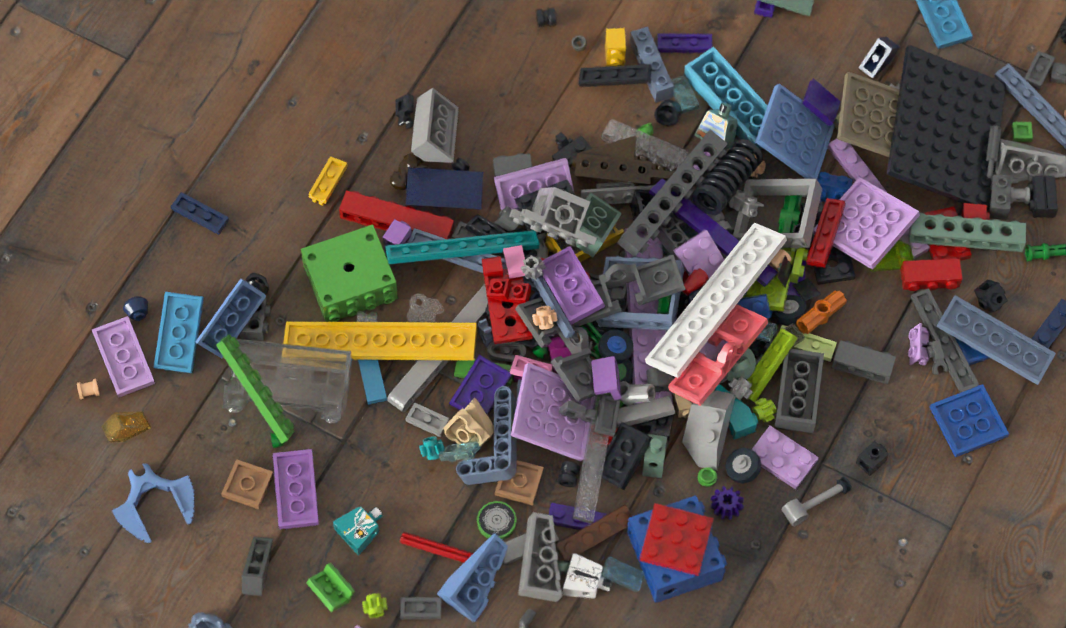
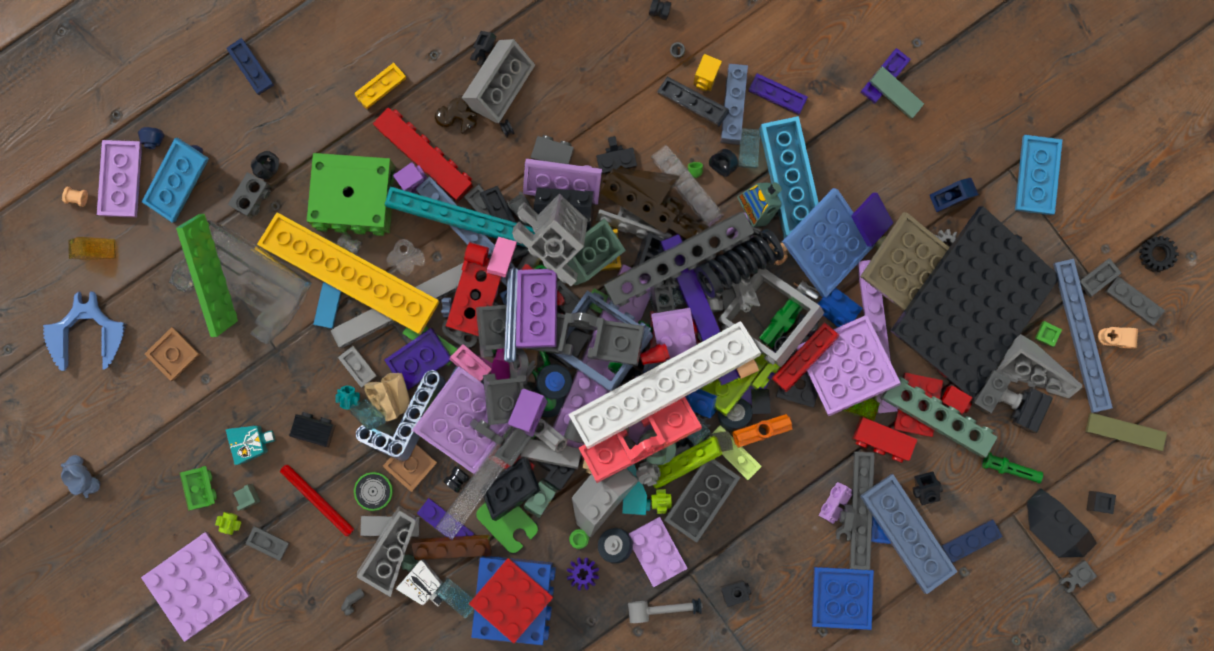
camera: 30 degrees right, 20 degrees up
(231, 316) = (223, 190): medium blue slope -> none
(256, 566) = (144, 436): dark grey slope -> none
(295, 489) = (211, 378): medium lavender plate -> none
(381, 576) = (246, 497): none -> sand green panel
(413, 490) = (312, 430): none -> black brick
(444, 188) = (478, 147): clear blue slope -> none
(471, 582) = (319, 543): medium blue wedge -> none
(509, 292) = (480, 285): red slope -> none
(533, 267) = (508, 271): light grey gear -> none
(544, 317) = (494, 333): light nougat gear -> none
(634, 494) = (506, 525): none -> bright green piece
(784, 271) = (745, 381): black piece -> none
(864, 362) = (777, 496): dark grey brick -> none
(993, 148) = (1009, 343): dark grey axle -> none

